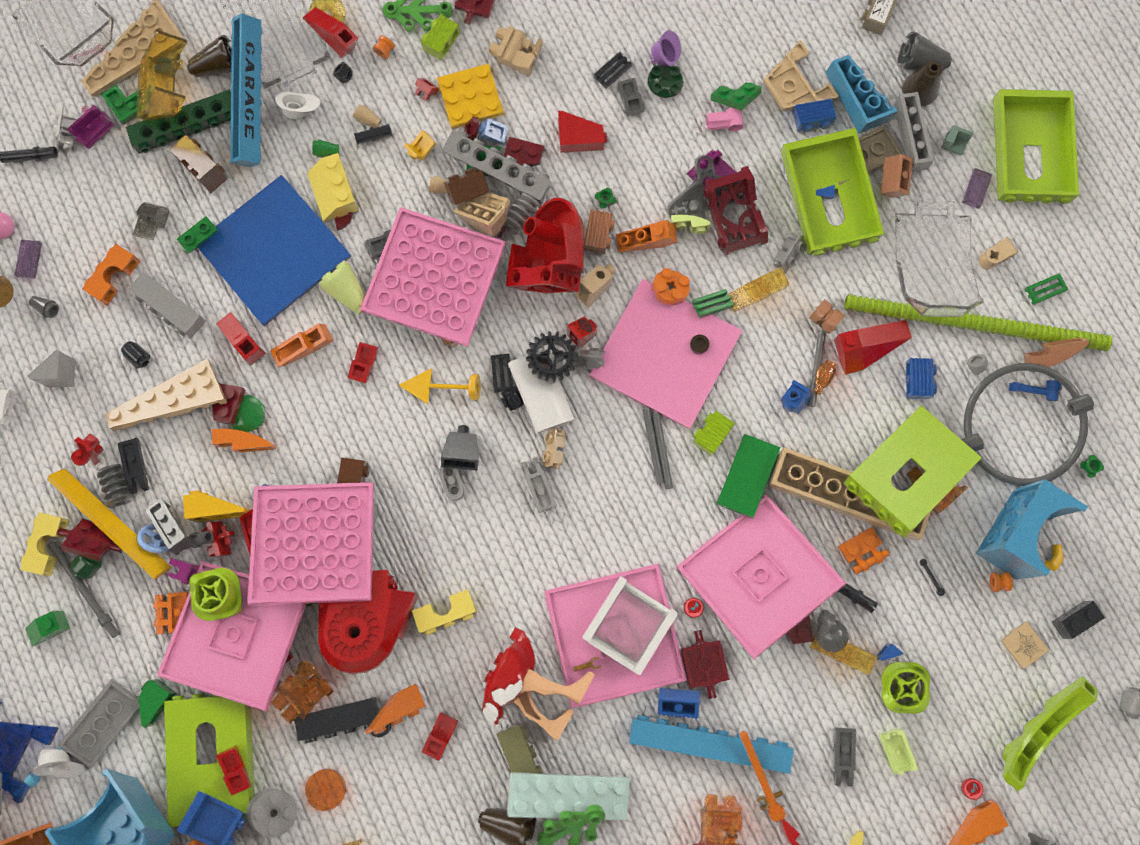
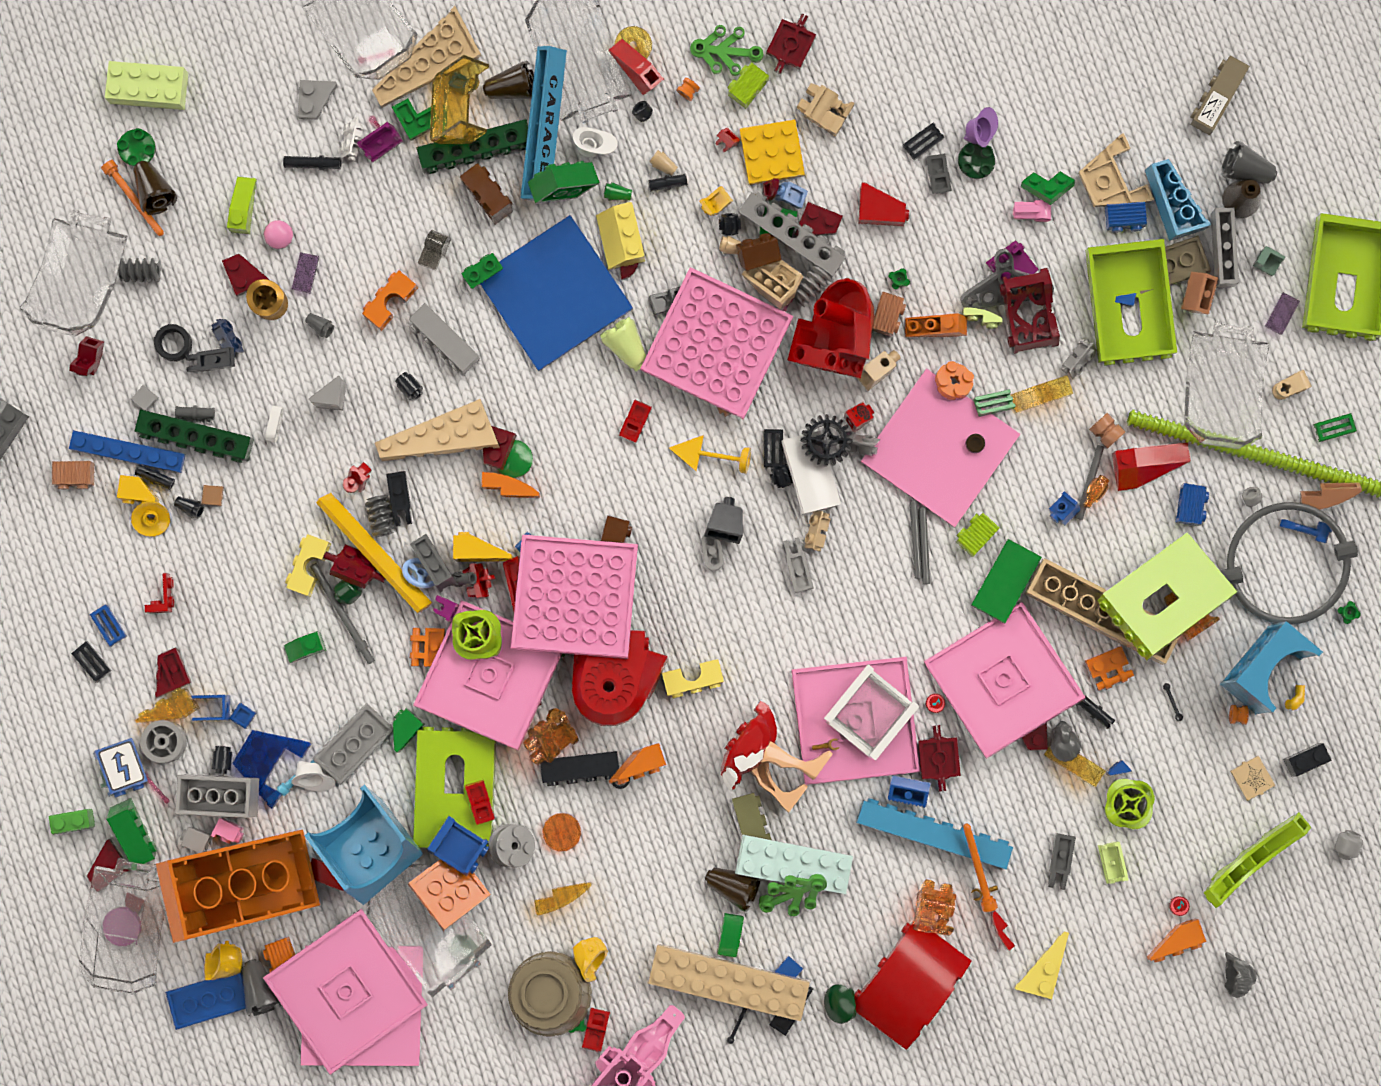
camera: 10 degrees right, 5 degrees up
(27, 96) = (313, 97): none -> light grey wing
(240, 338) = (515, 381): slope -> none
(267, 140) = (563, 181): none -> green brick
(302, 345) = (576, 396): orange slope -> none
(435, 164) = (729, 224): none -> black gear
(440, 736) = (676, 795): red slope -> none

